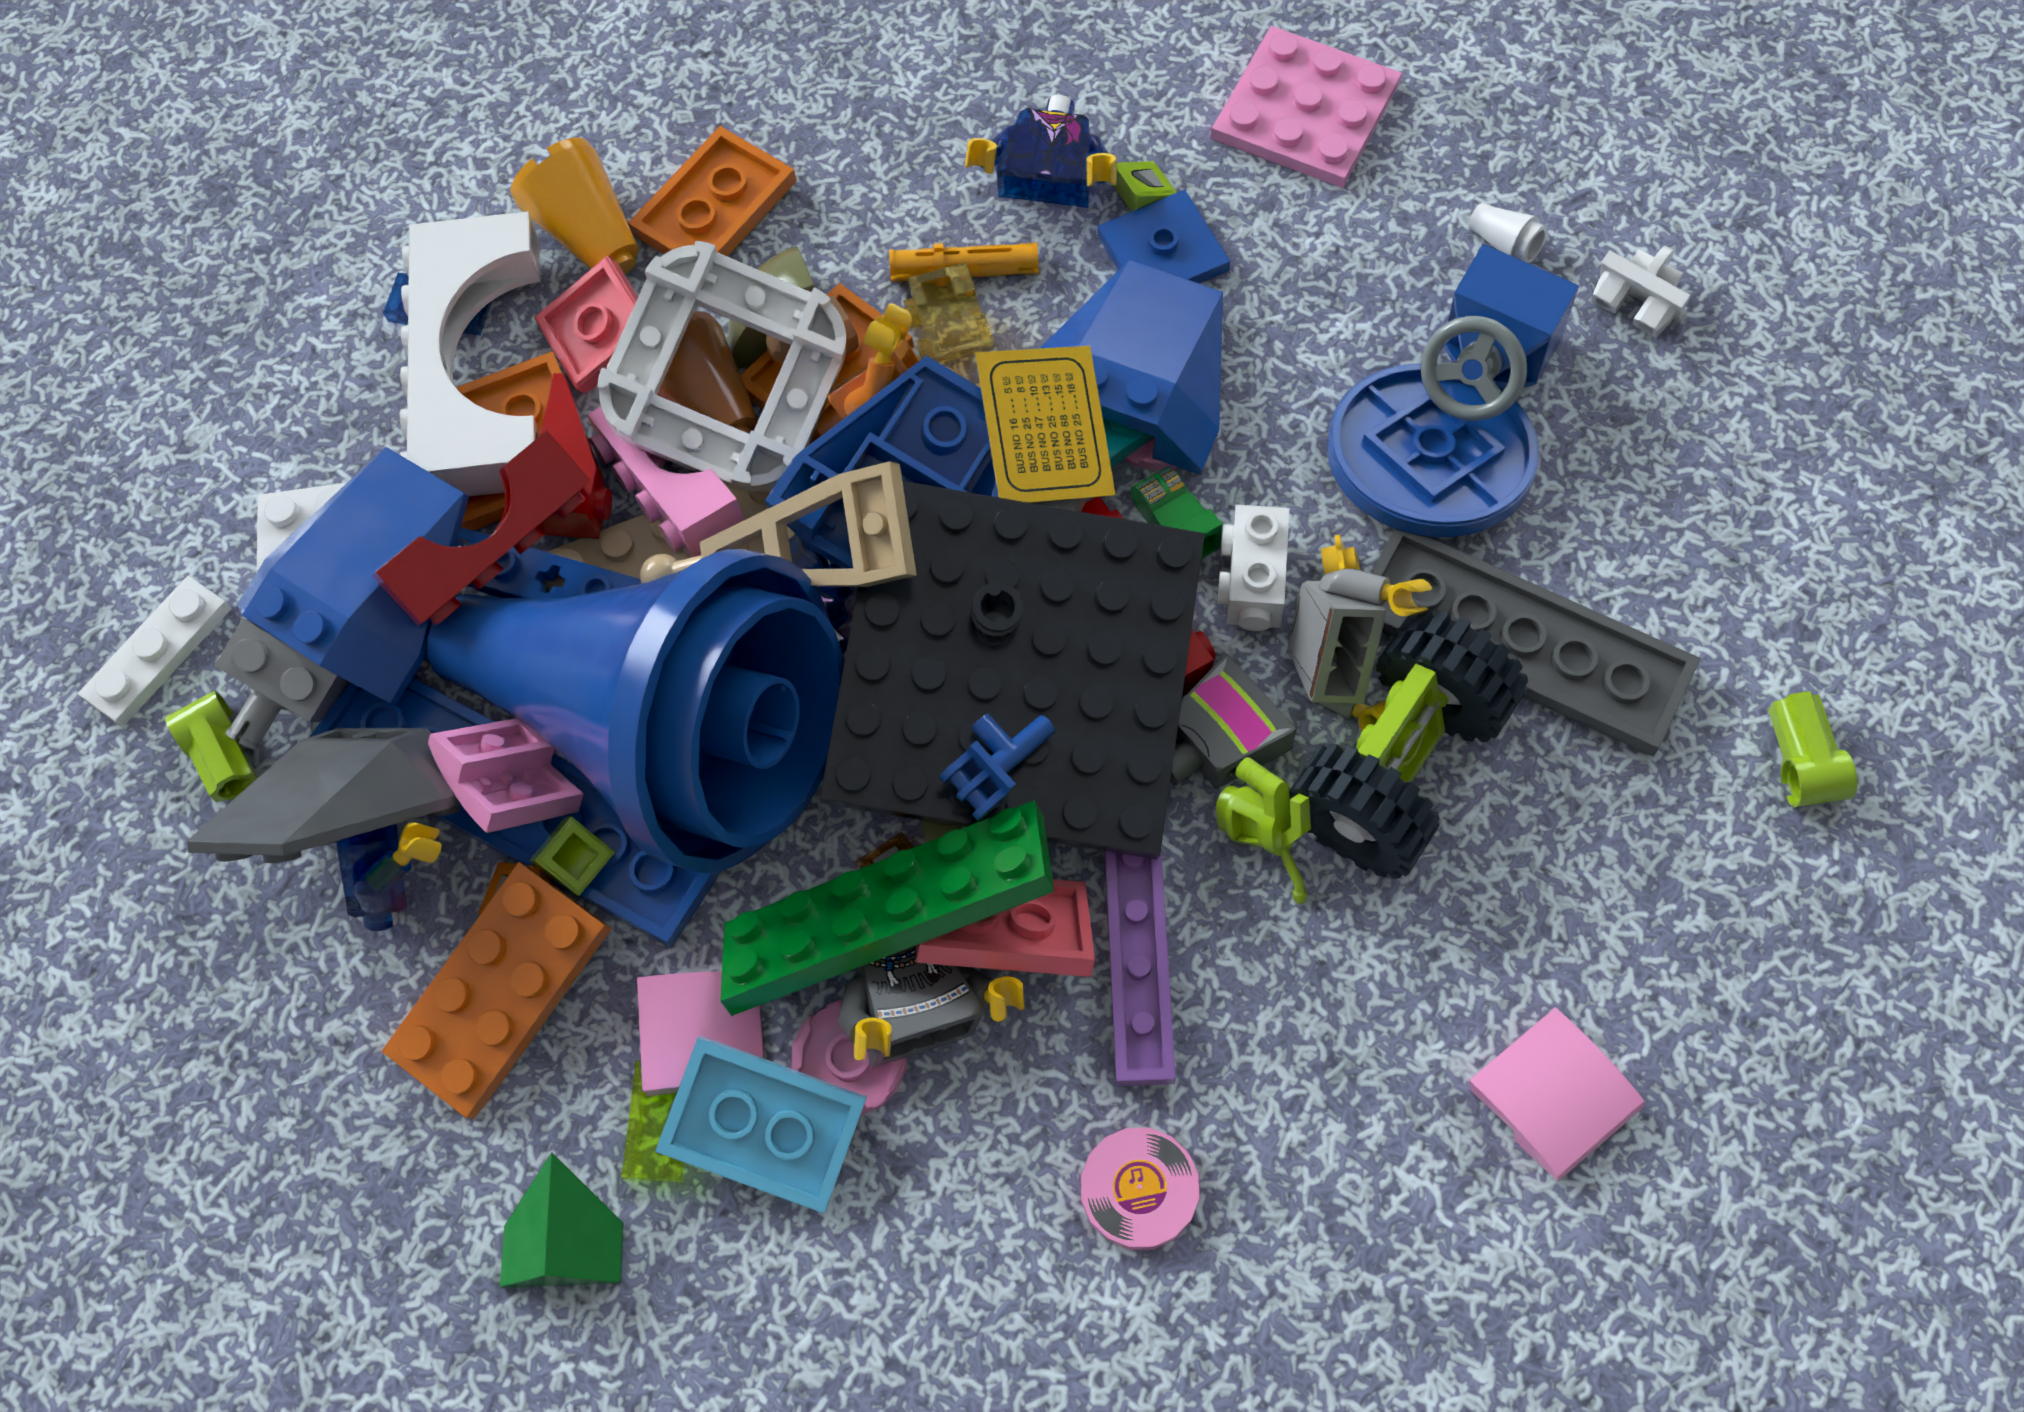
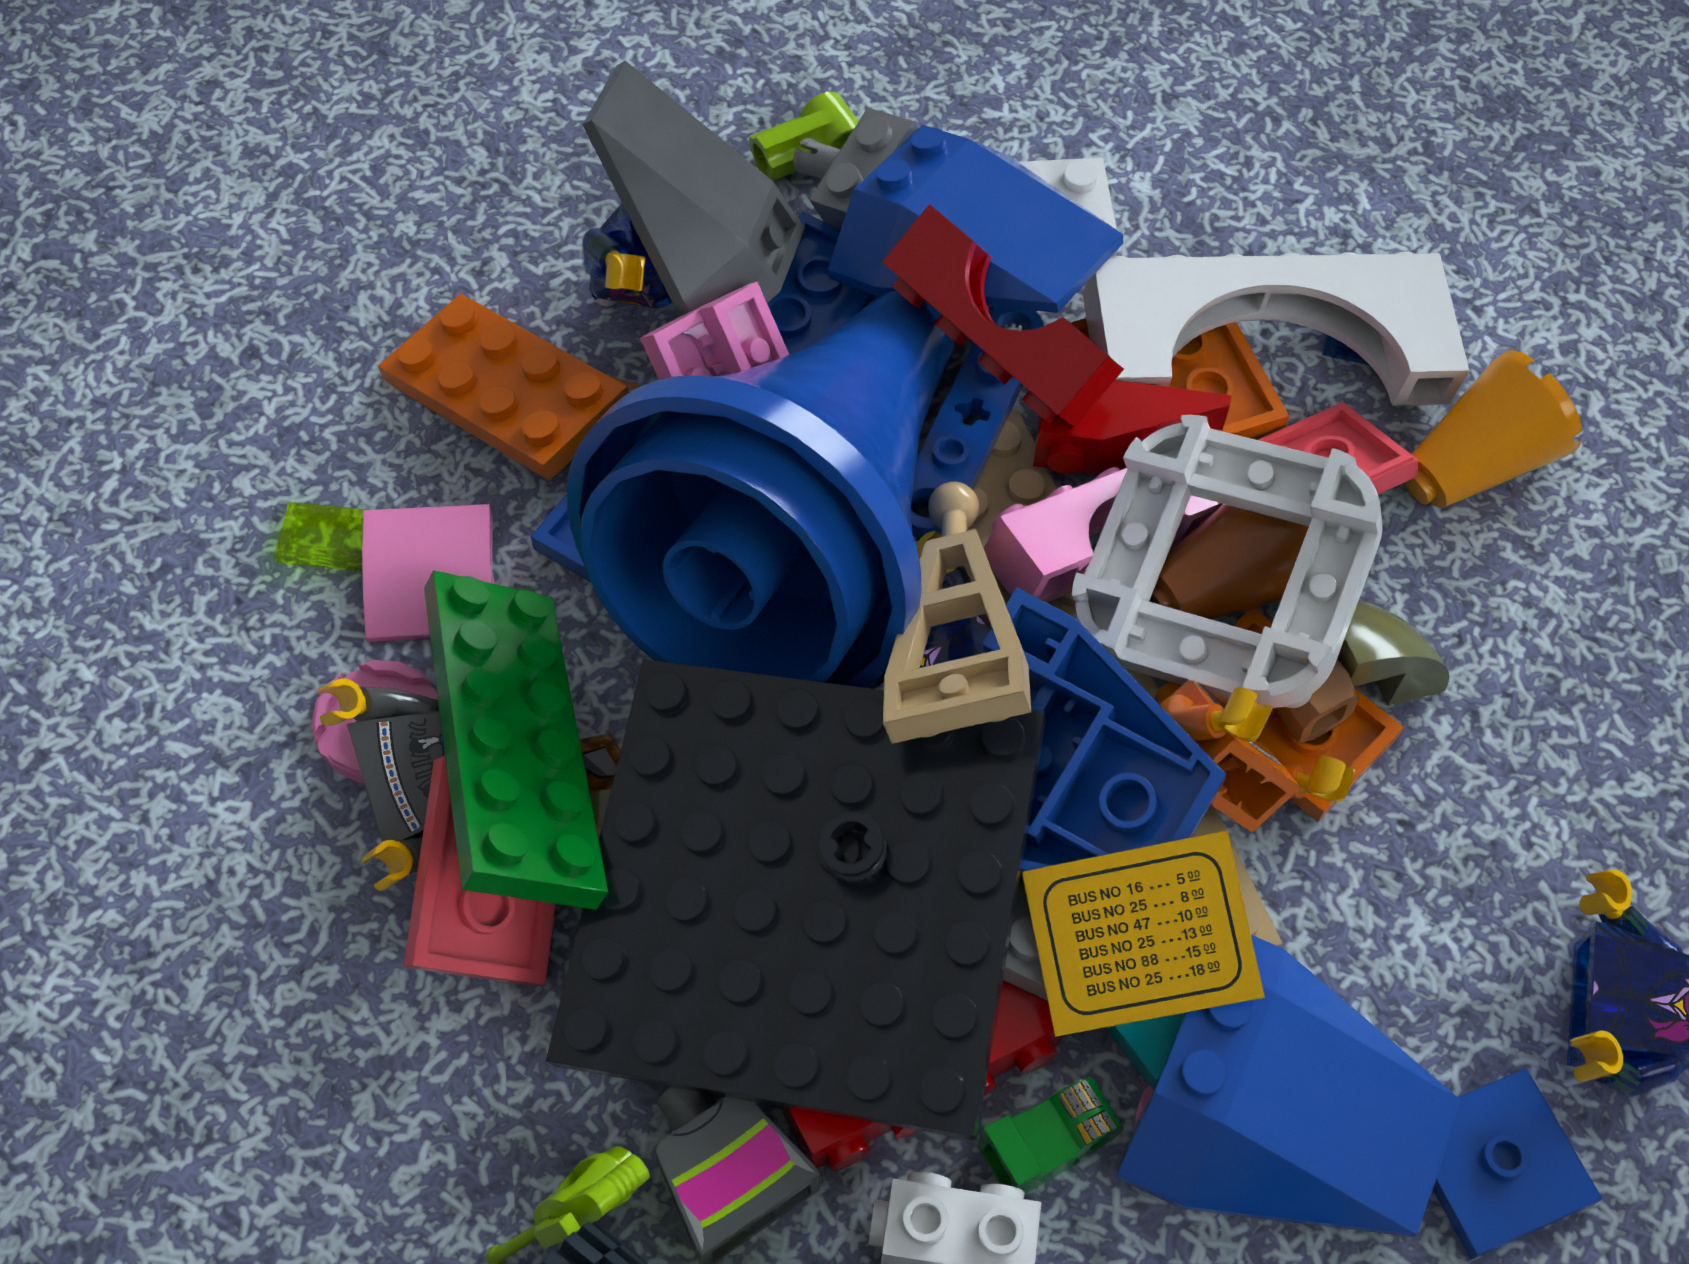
camera: 85 degrees right, 5 degrees down
(154, 651) = (925, 89): white plate -> none
(561, 1234) = (231, 452): green slope -> none
(714, 196) = (1526, 588): orange plate -> none
(761, 1124) = (304, 621): medium azure plate -> none
(948, 315) = (1354, 860): clear yellow cylinder -> none
(980, 260) = (1450, 860): light orange pin -> none
(984, 777) = (640, 834): blue arm -> none
(1139, 971) = (420, 1040): medium lavender plate -> none
(1139, 1188) = (163, 1023): bright pink tile -> none
(1141, 183) = (1610, 1141): lime slope -> none

